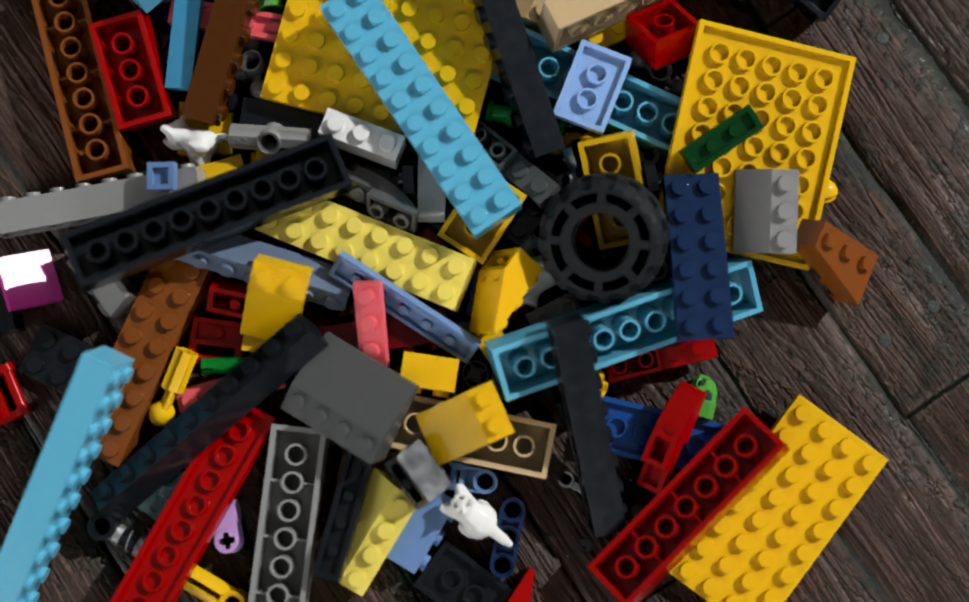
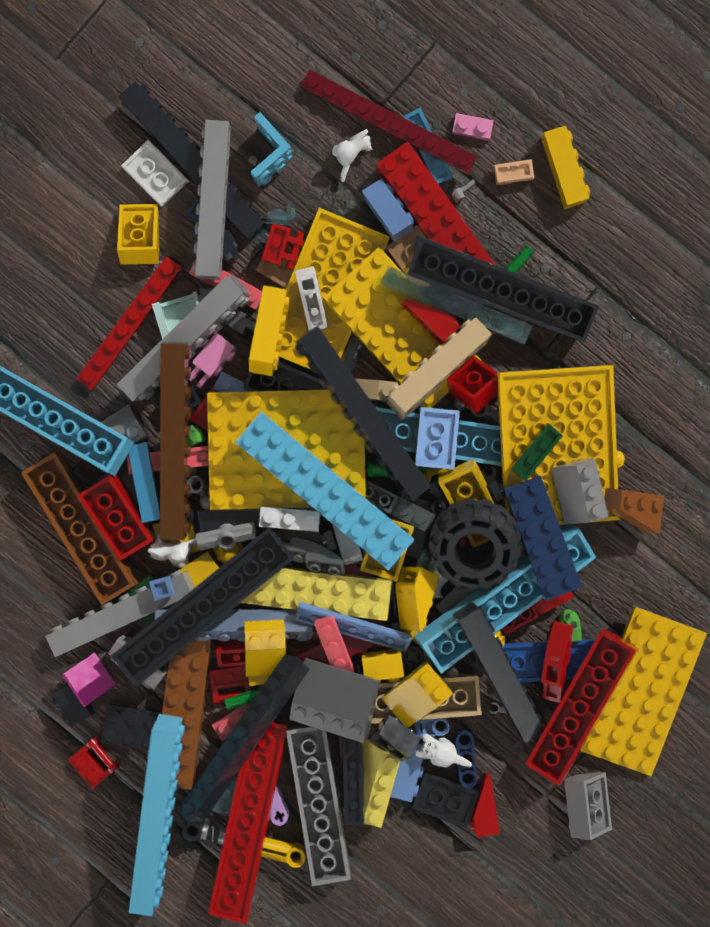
camera: 20 degrees left, 5 degrees up
(174, 383) = (210, 721): yellow piece -> none

